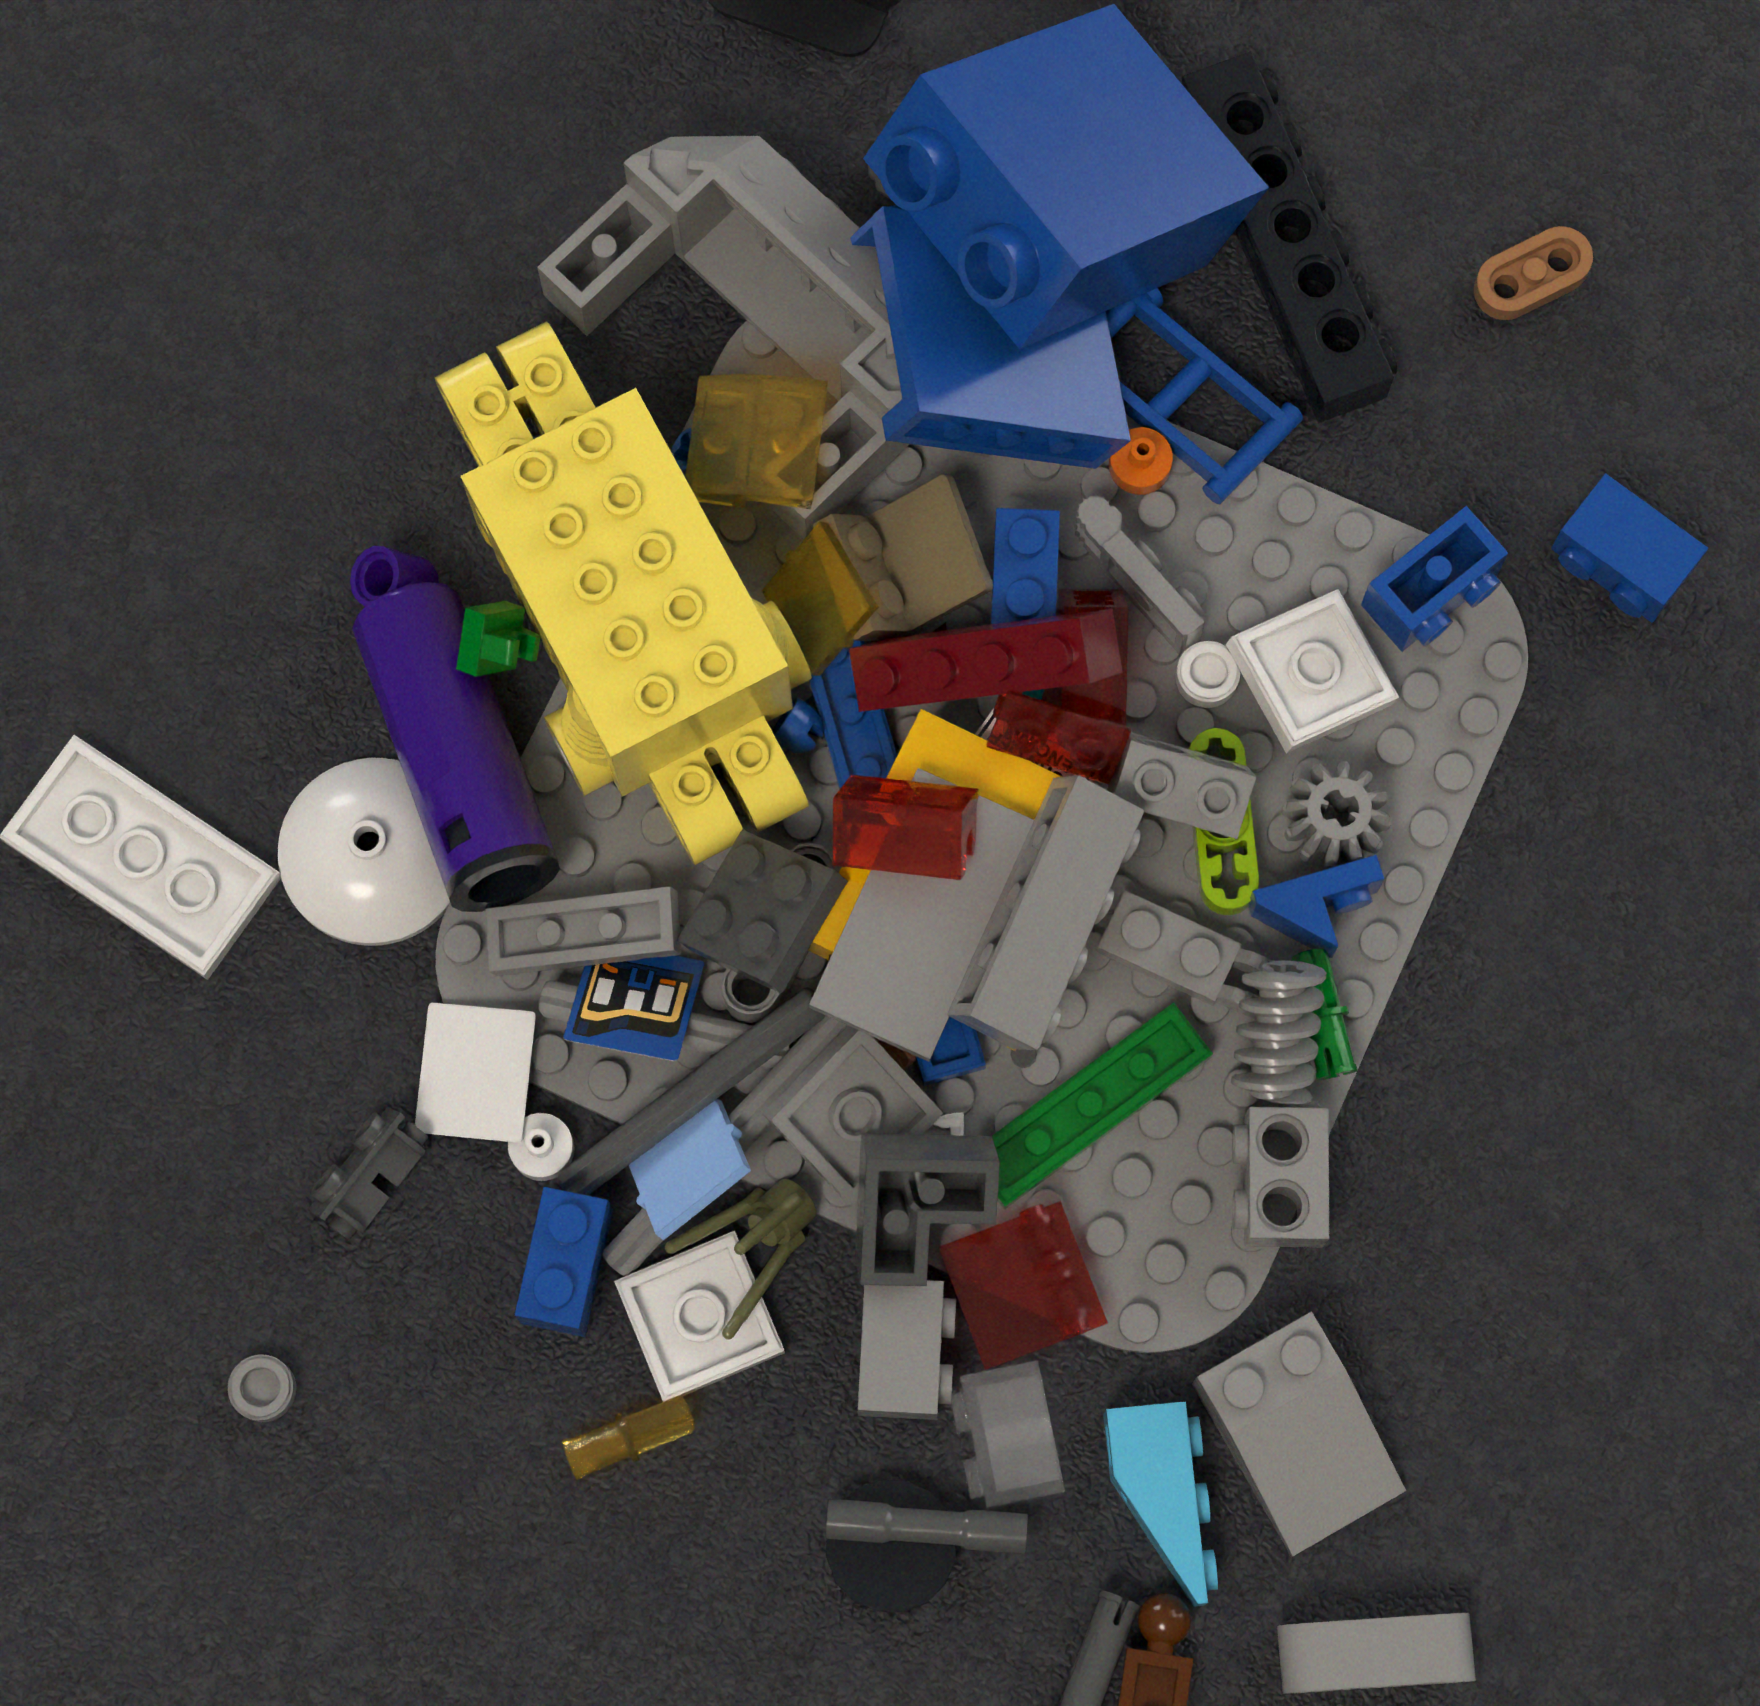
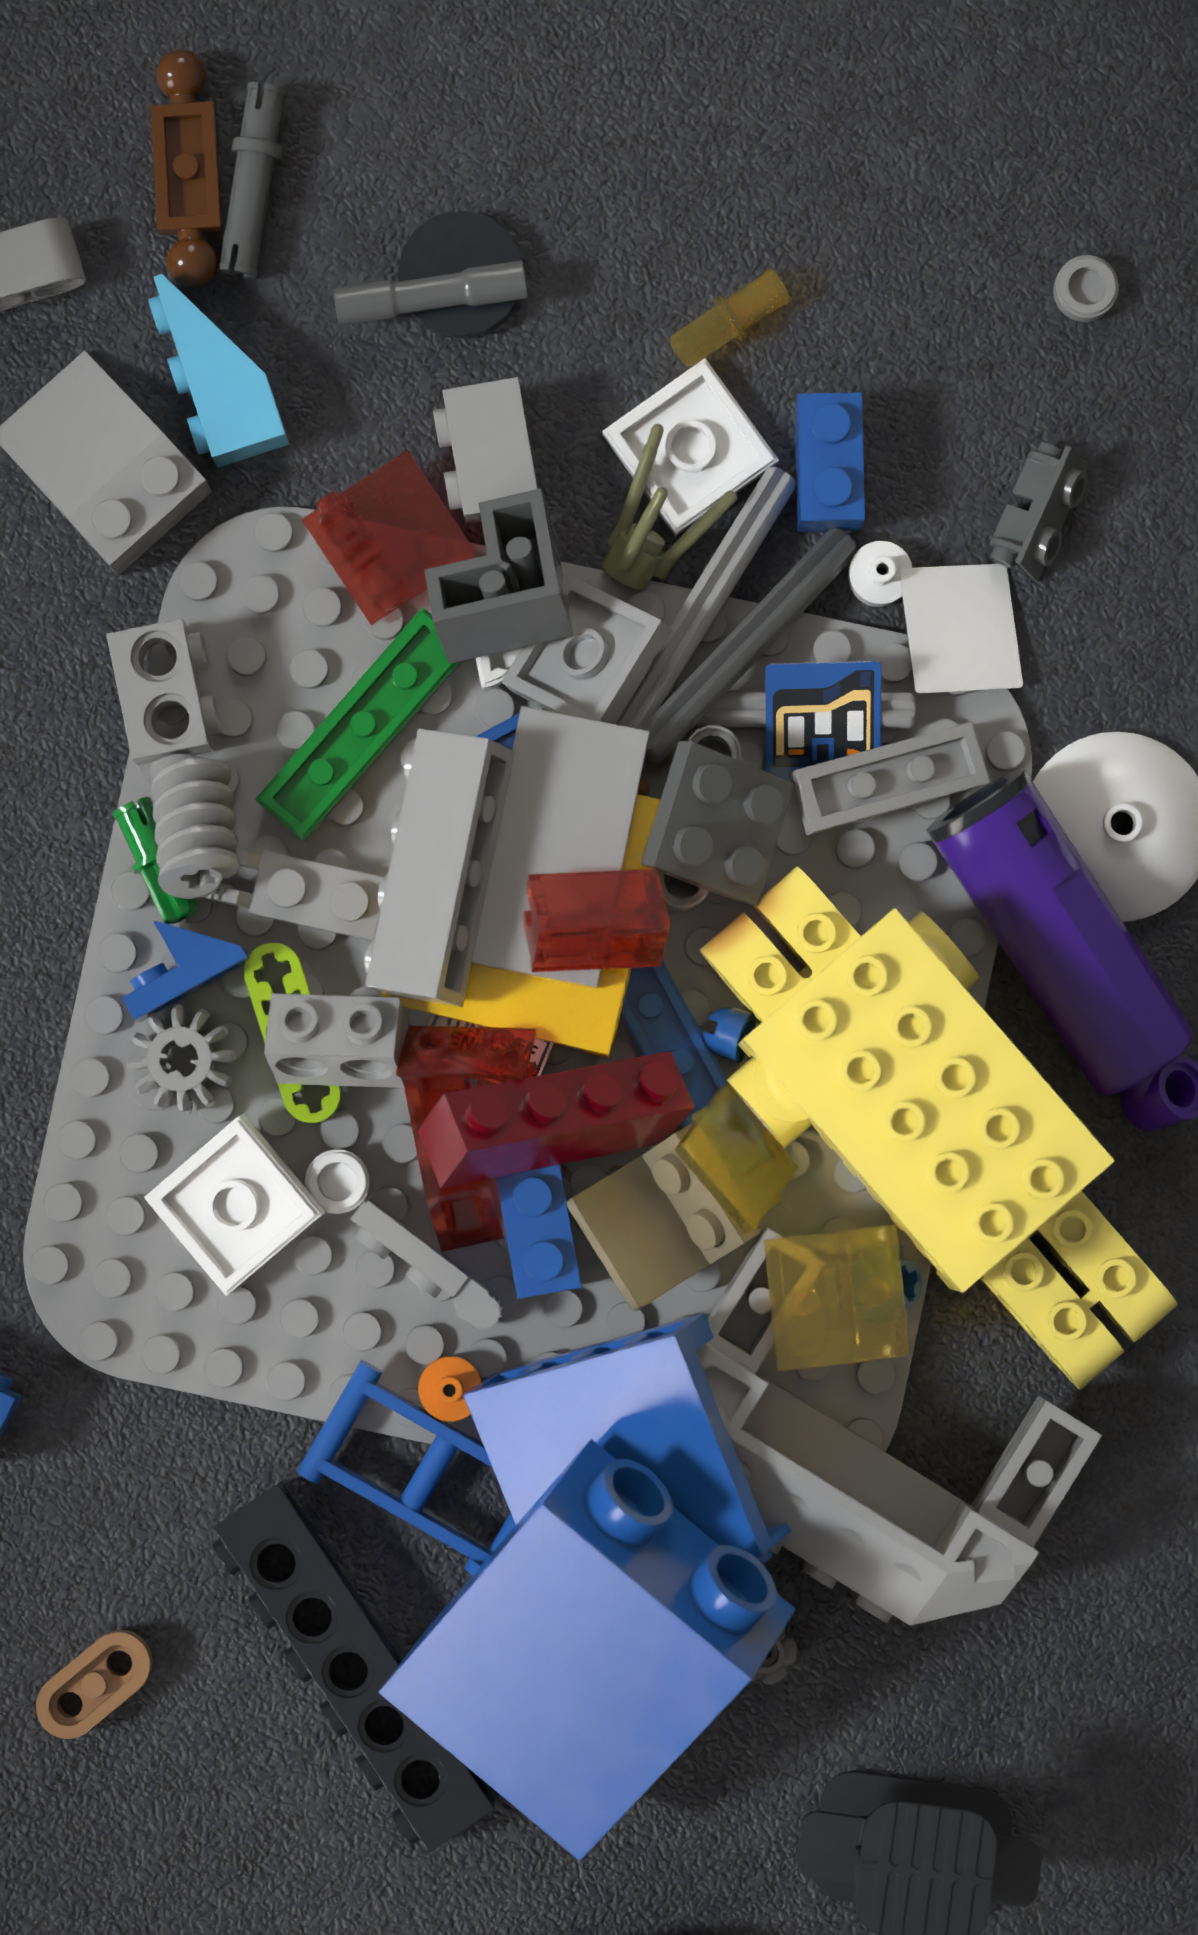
camera: 165 degrees right, 10 degrees up
(495, 639) = (1047, 1033): green tile -> none
(689, 1169) = (729, 569): light blue piece -> none
(1008, 1435) = (371, 394): clear brick -> none
(1434, 579) = (130, 1318): blue brick -> none

